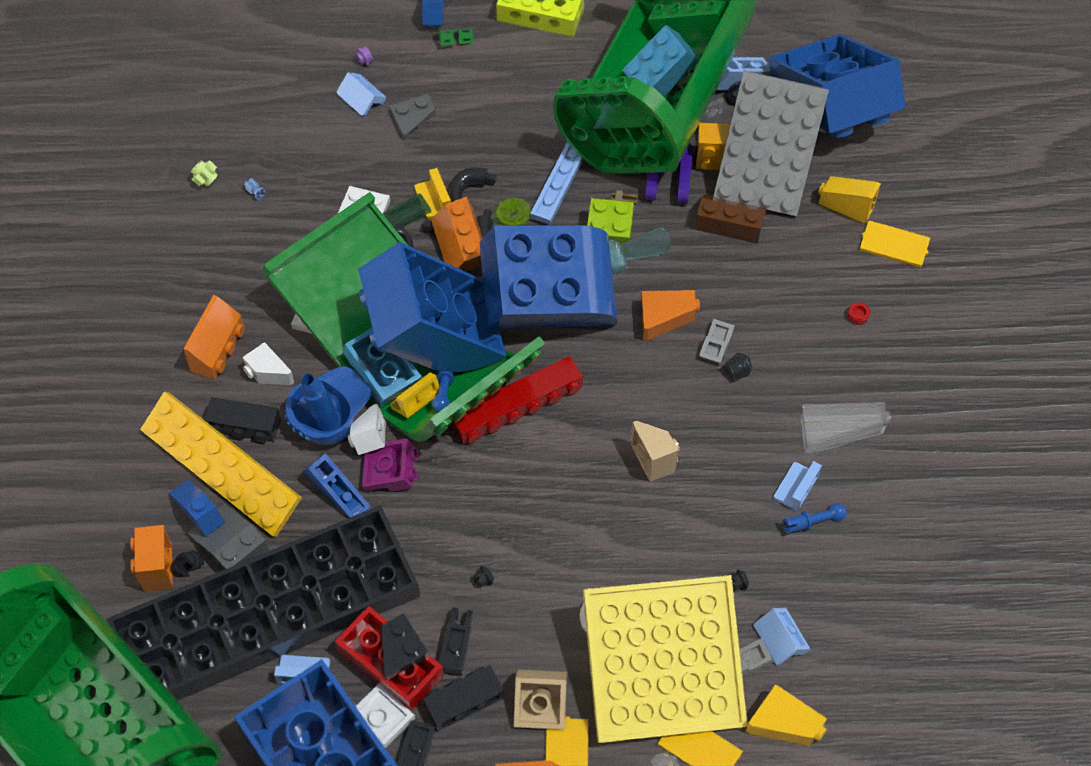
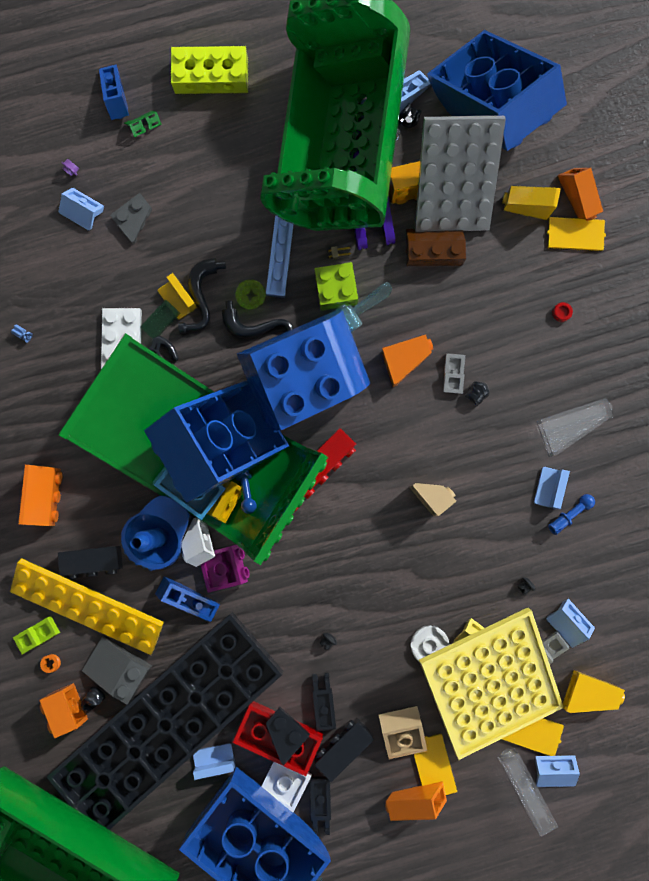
camera: 15 degrees left, 25 degrees up
(149, 483) = (36, 635): none -> lime slope
(161, 516) = (43, 664): none -> orange bush
(197, 507) = (81, 652): blue slope -> none
(267, 367) = (92, 505): white slope -> none
(458, 235) = (214, 337): orange slope -> none
(662, 61) = (340, 117): dark azure brick -> none
(909, 202) = (581, 192): none -> orange slope

